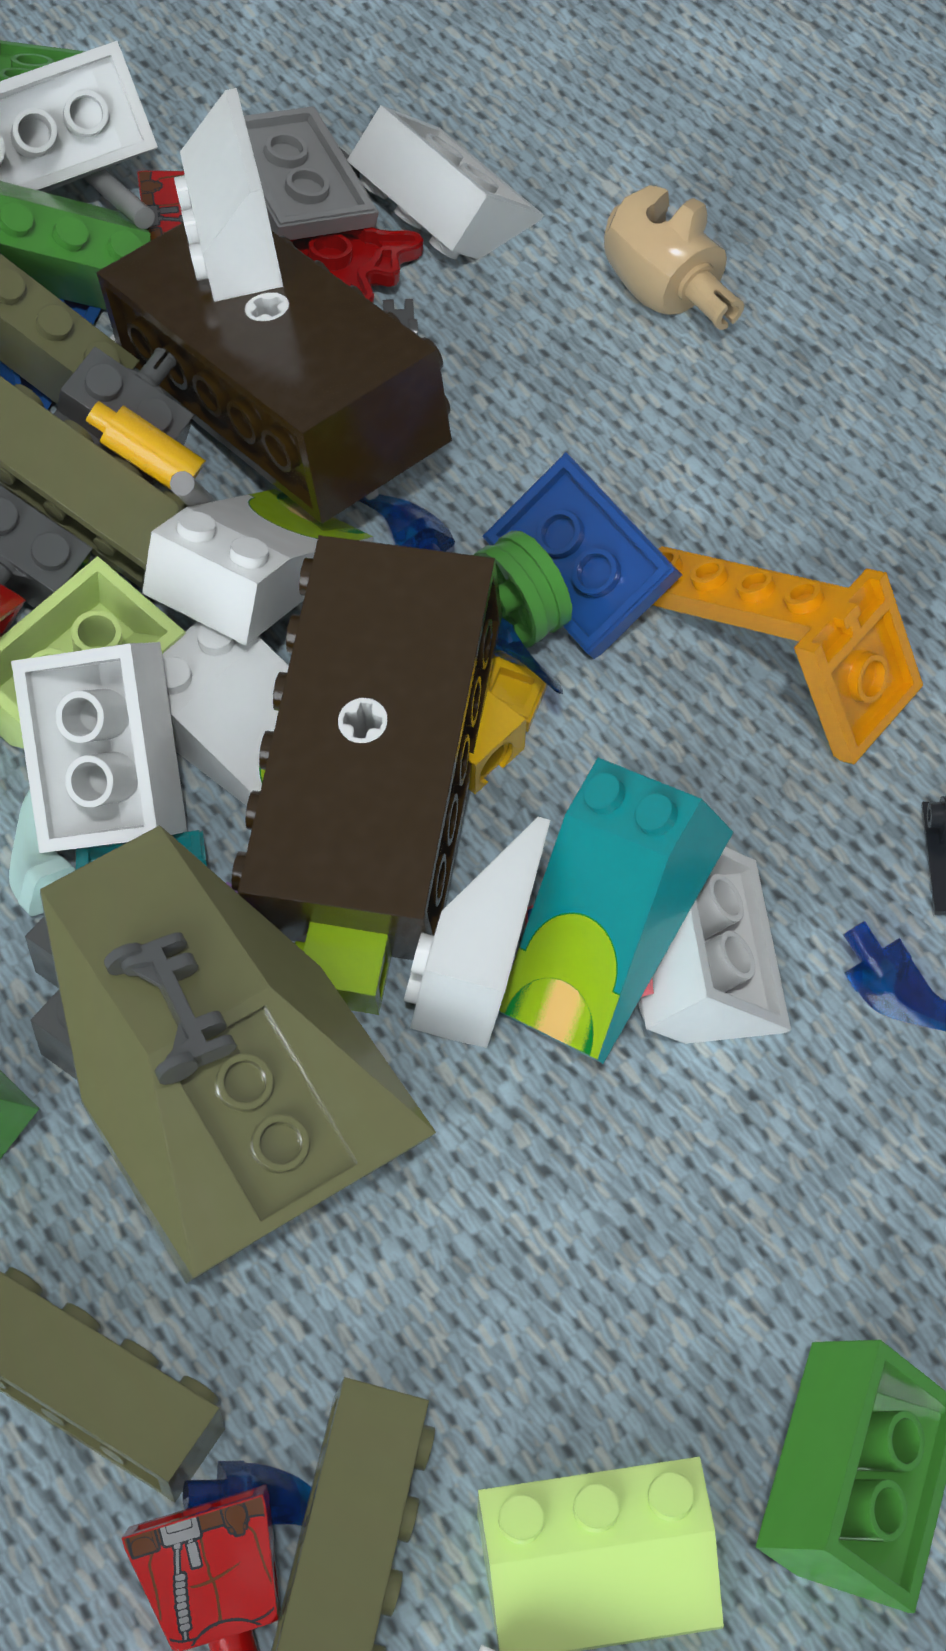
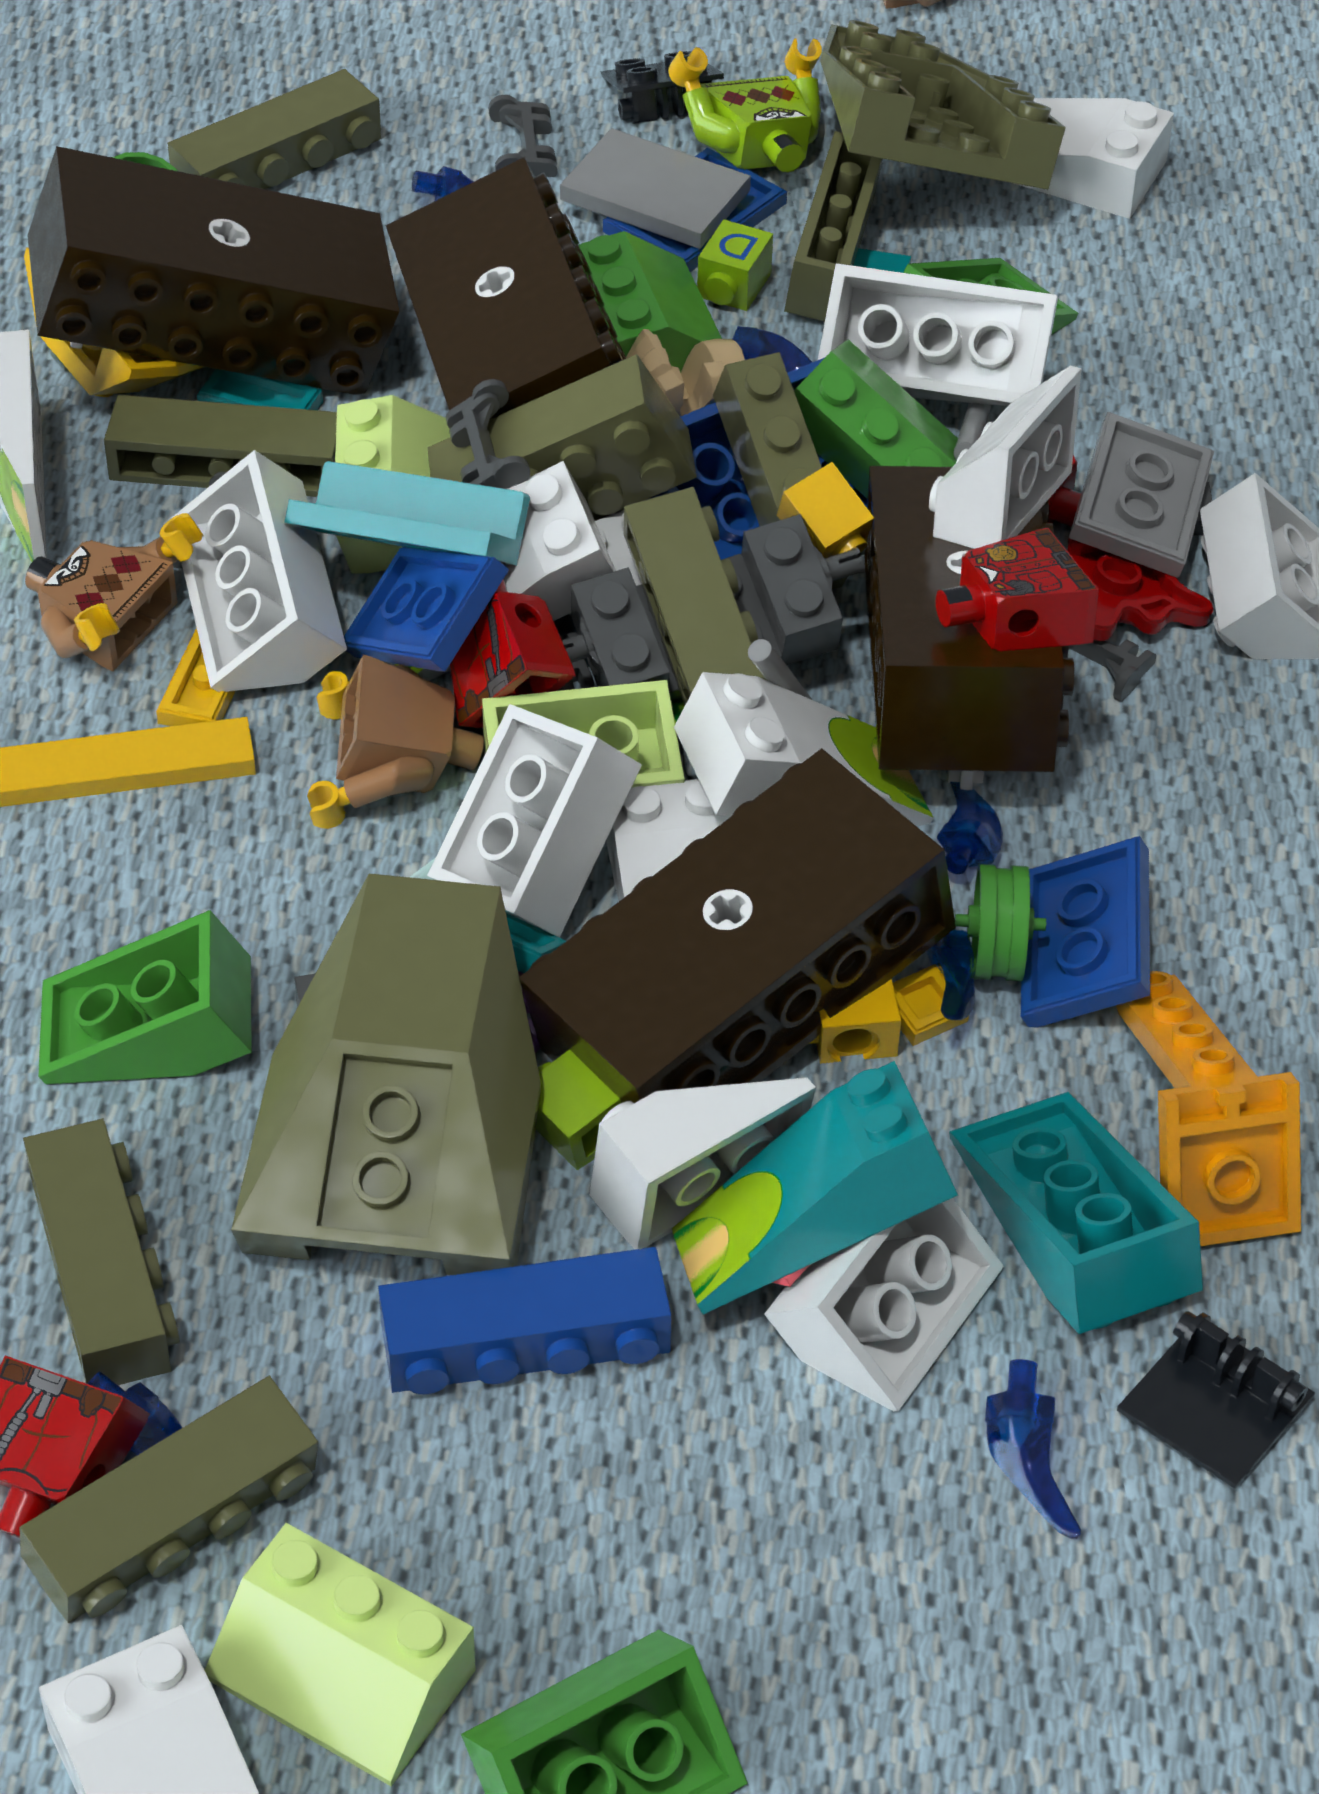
camera: 40 degrees right, 10 degrees down
(111, 327) = (830, 511): none -> yellow brick
(143, 444) = (773, 612): yellow cylinder -> none
(190, 1043) = (376, 1048): dark grey piece -> none
(357, 306) = (1022, 594): none -> red torso
(471, 1172) = (525, 1320): none -> blue brick
(782, 775) = (1082, 1212): none -> teal slope

